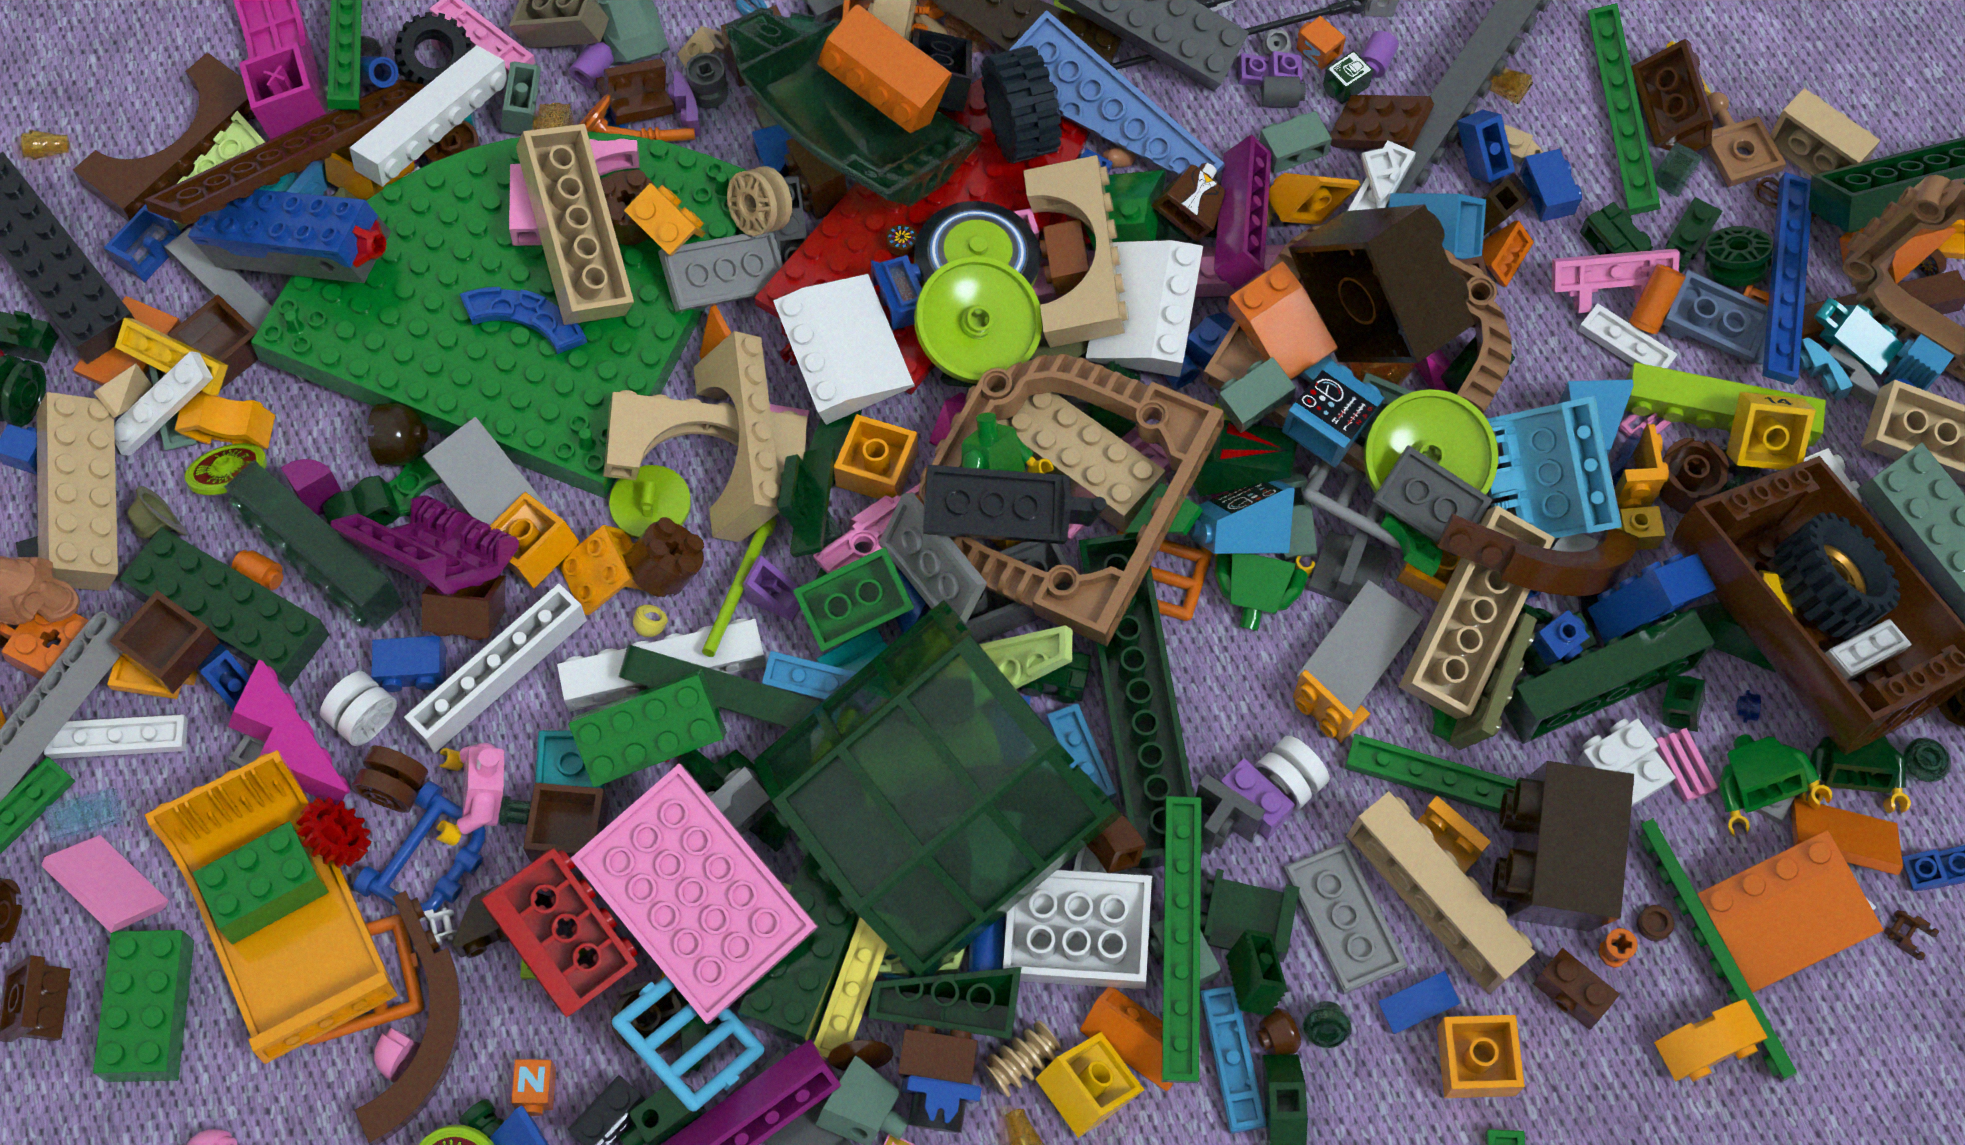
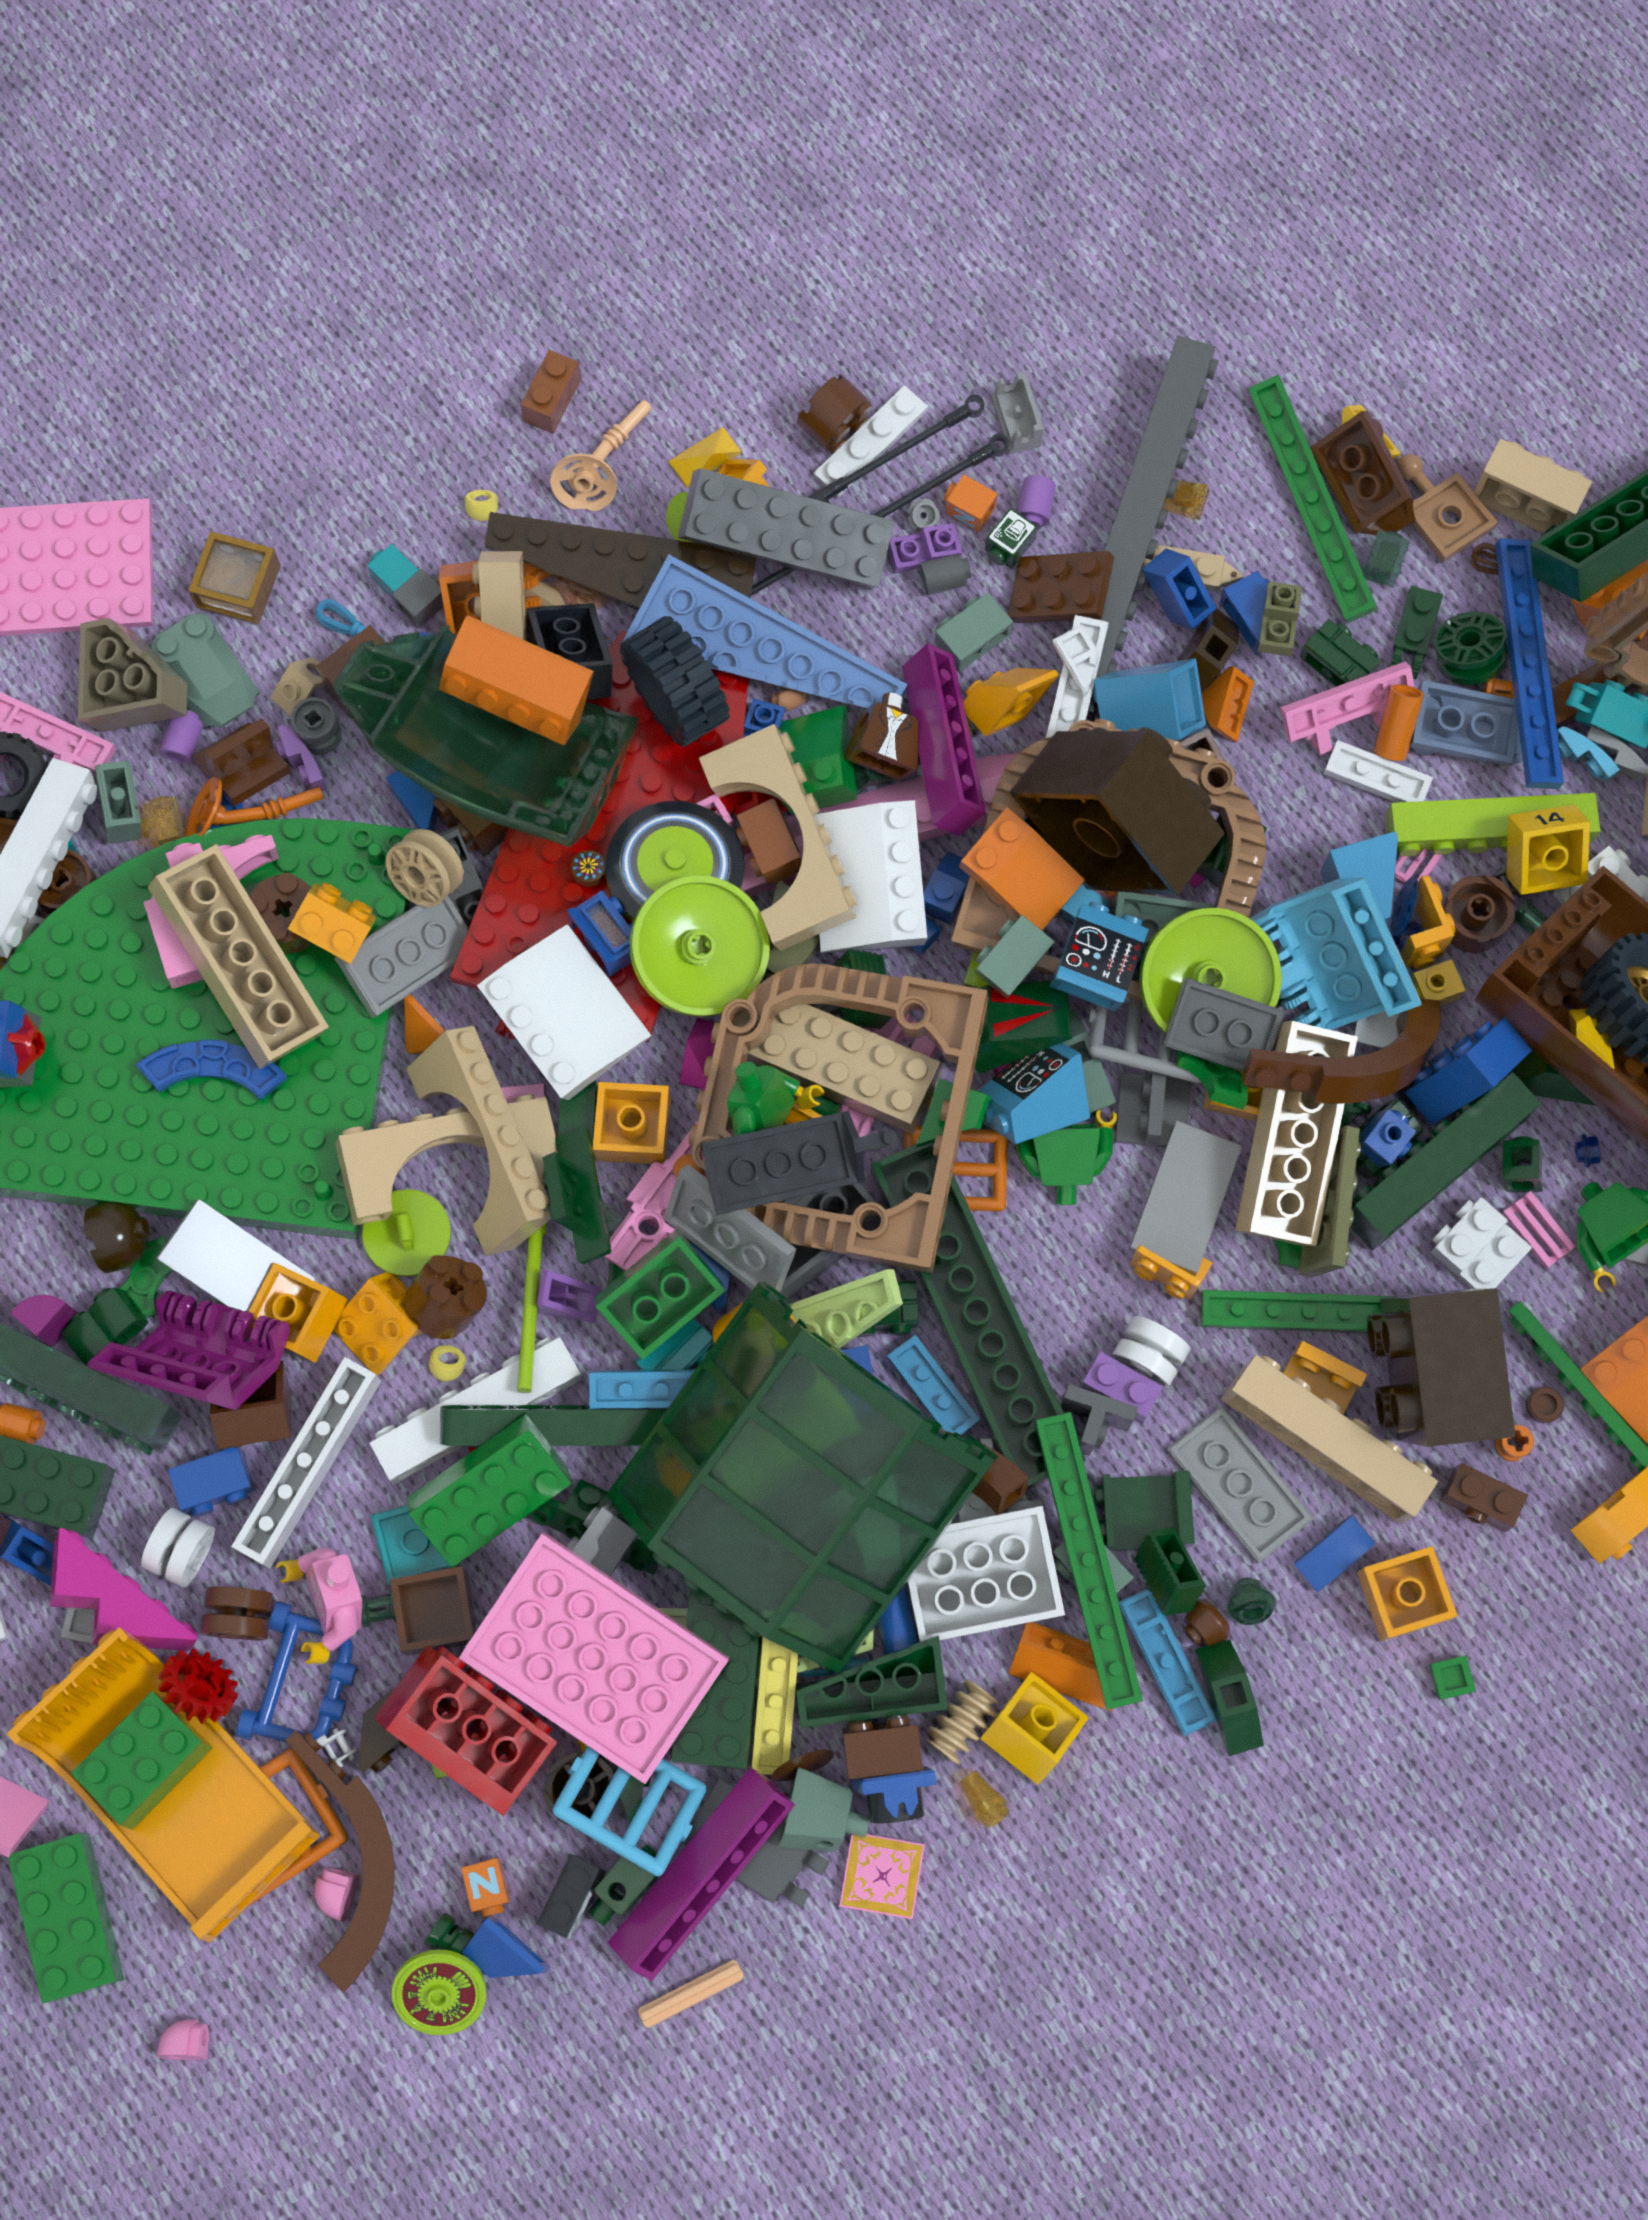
camera: 15 degrees left, 10 degrees up
(1569, 189) = (1279, 618): none -> olive slope

